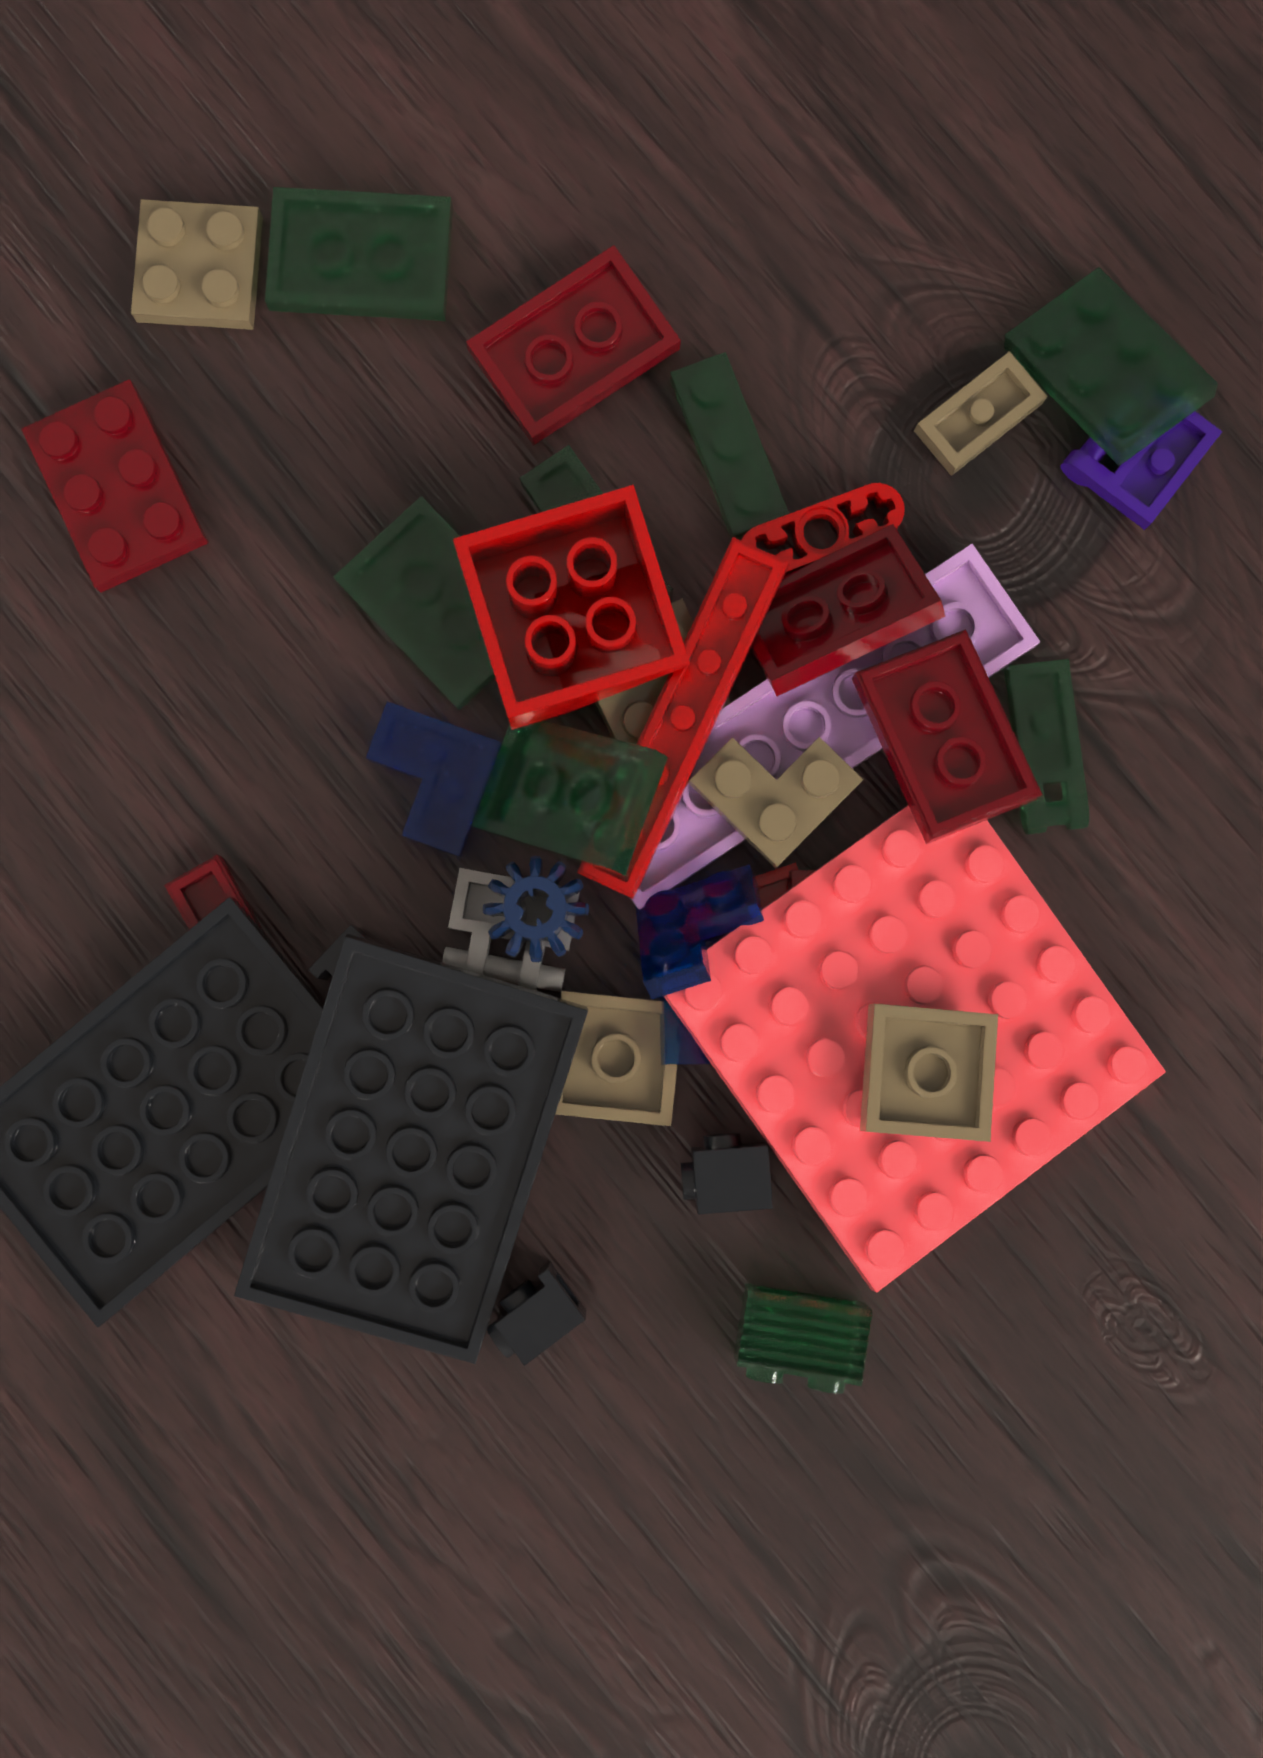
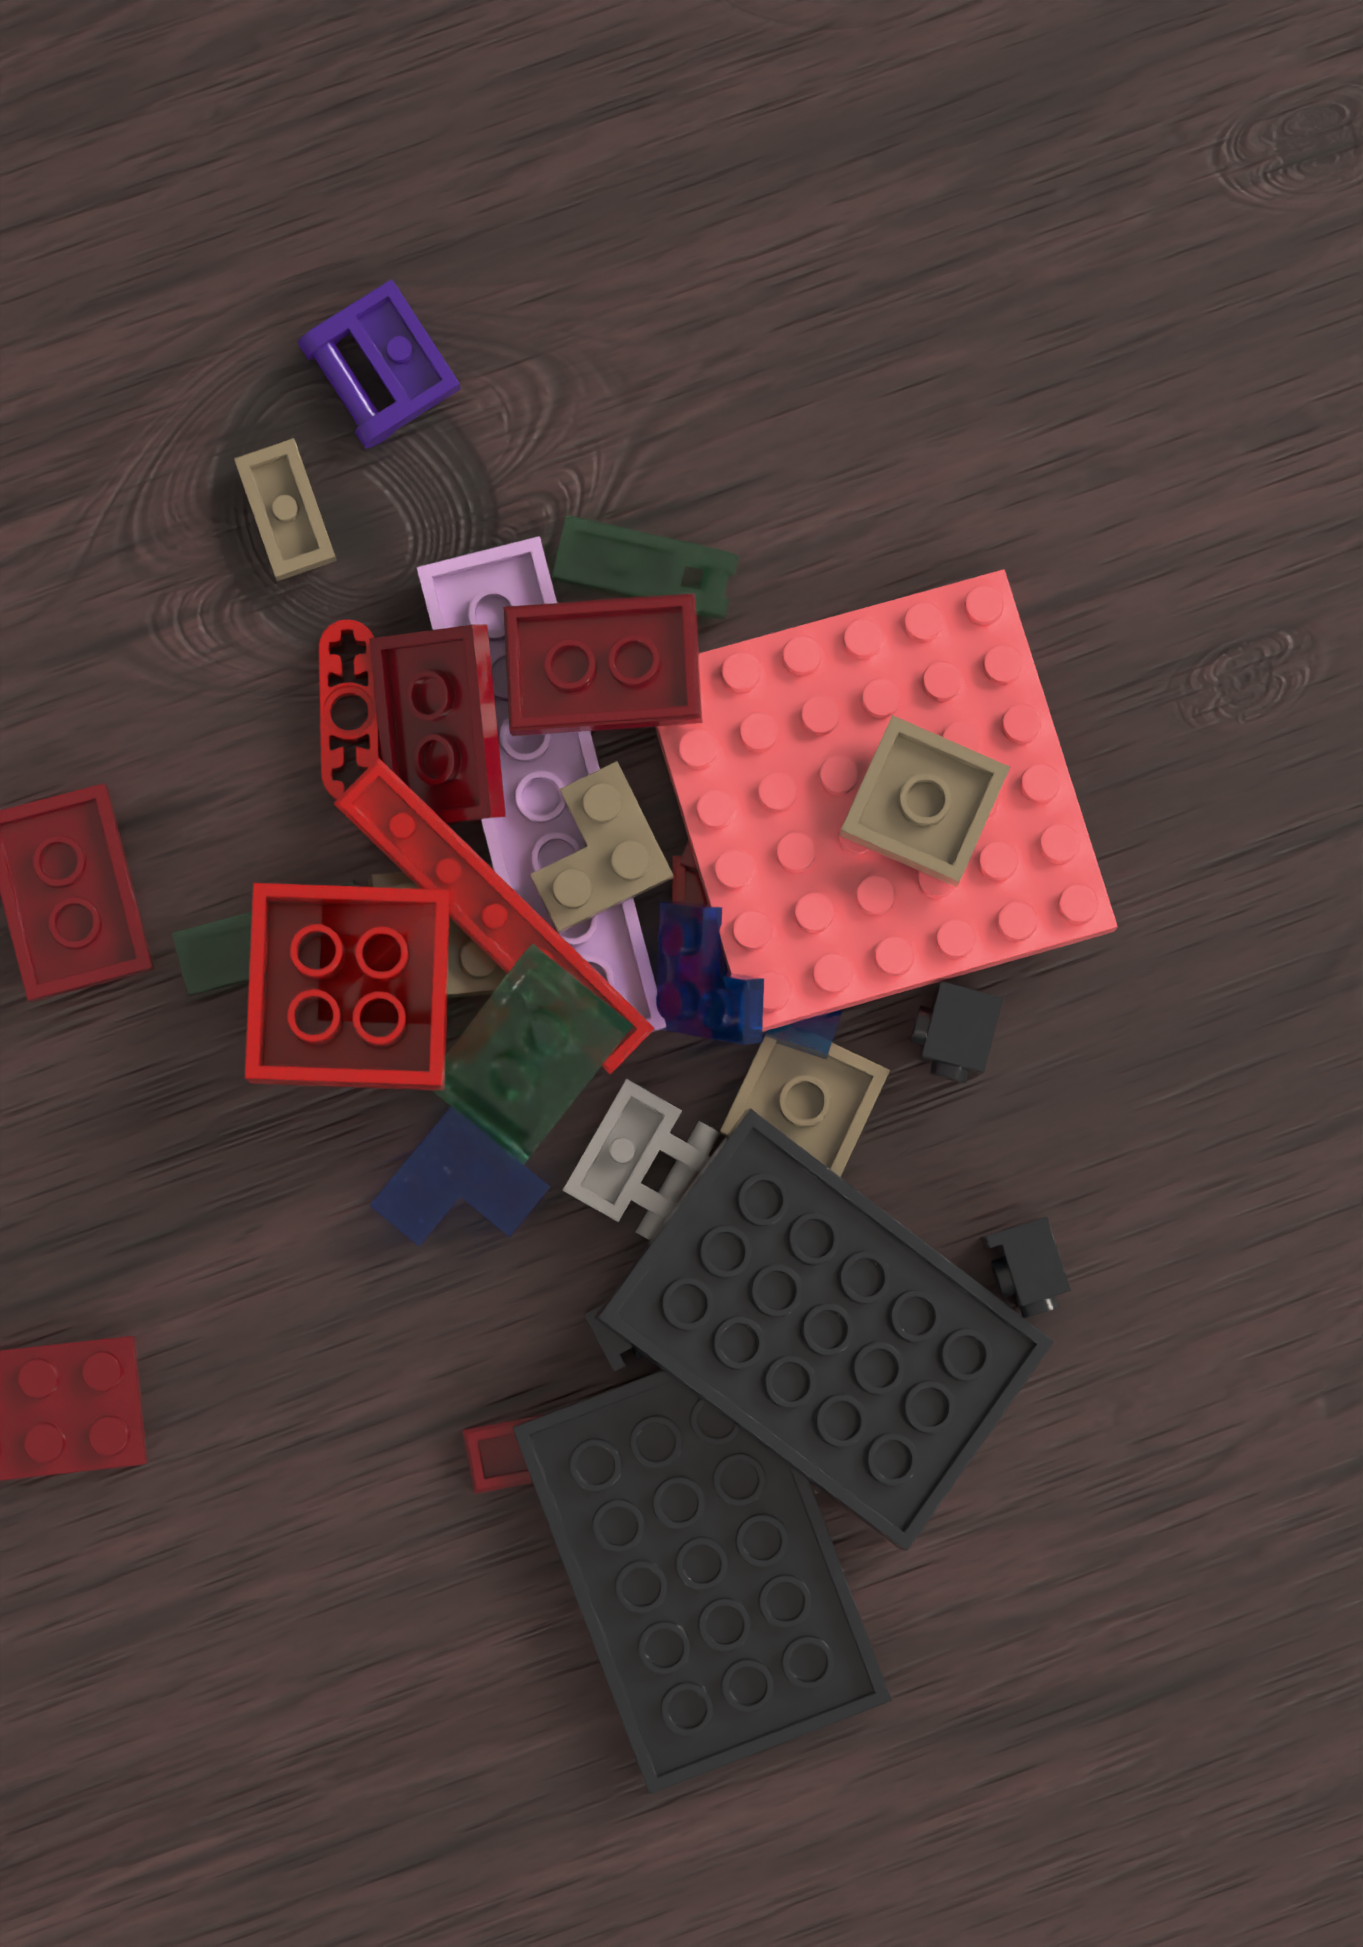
camera: 75 degrees left, 0 degrees up
(420, 600) = (277, 1136): clear green plate -> none
(516, 916) = (631, 1147): dark blue gear -> none
(728, 444) = (226, 772): clear green plate -> none
(802, 1337) = (1136, 1013): clear green brick -> none
(1110, 366) = (284, 365): clear green plate -> none

